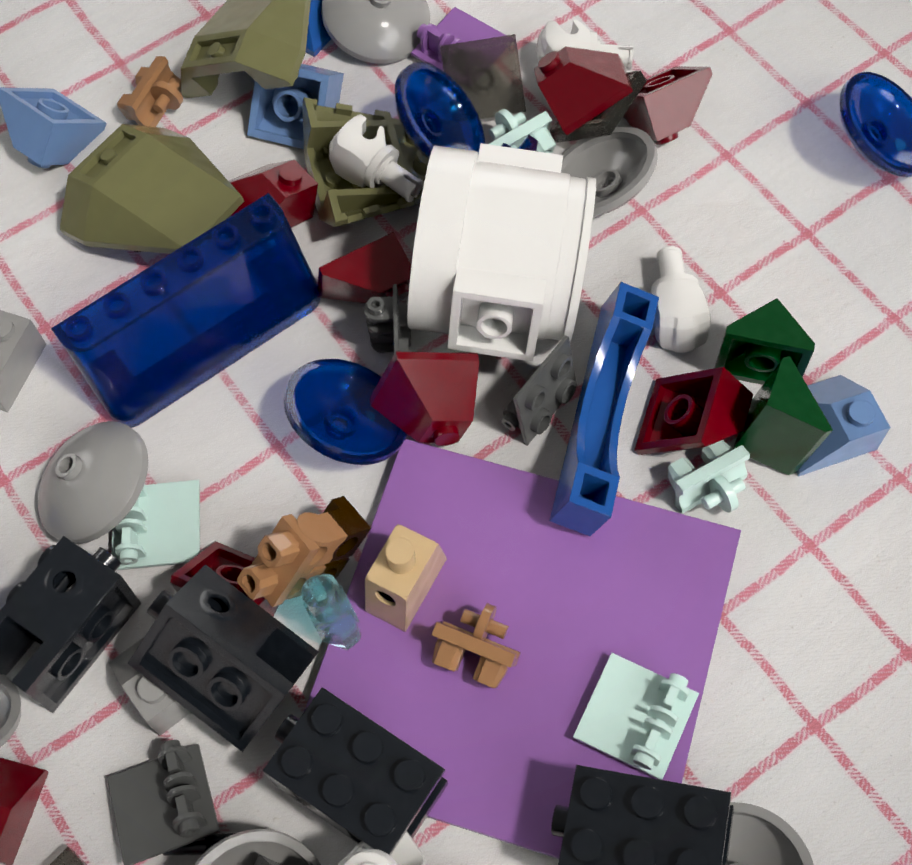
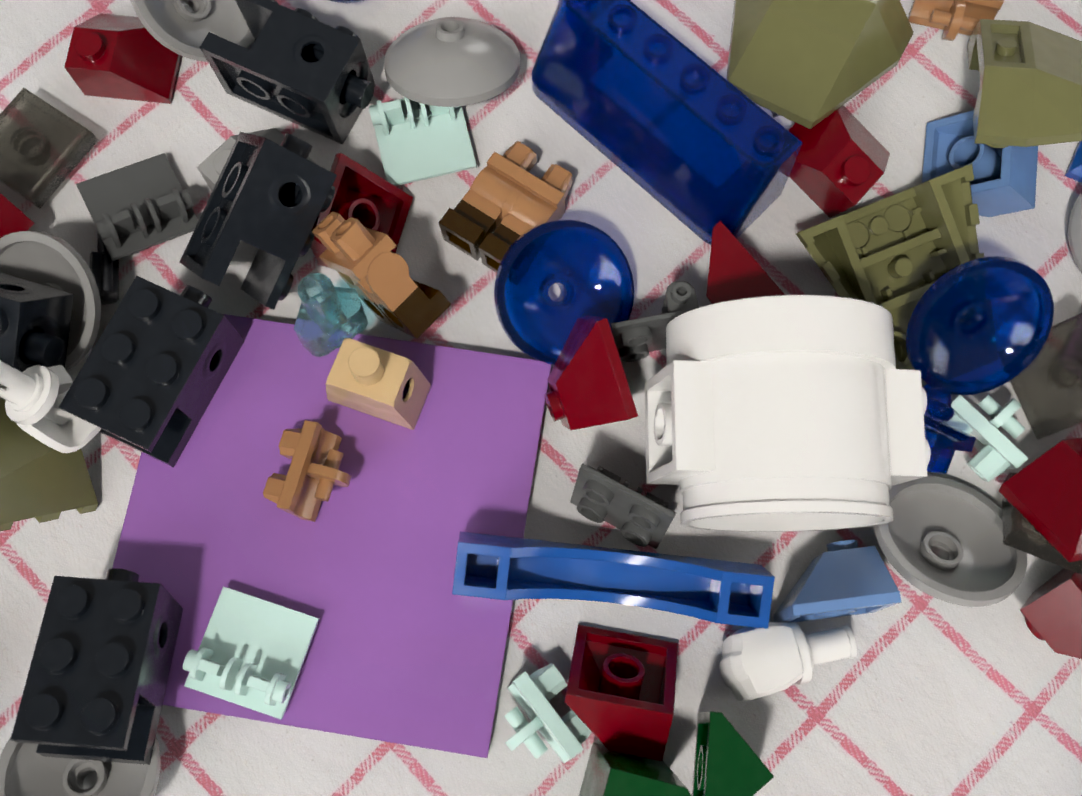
camera: 80 degrees right, 10 degrees up
(254, 454) = (505, 205): none -> medium nougat hips
(370, 160) = (892, 254): white piece -> none
(627, 245) = (840, 585): none -> medium blue slope

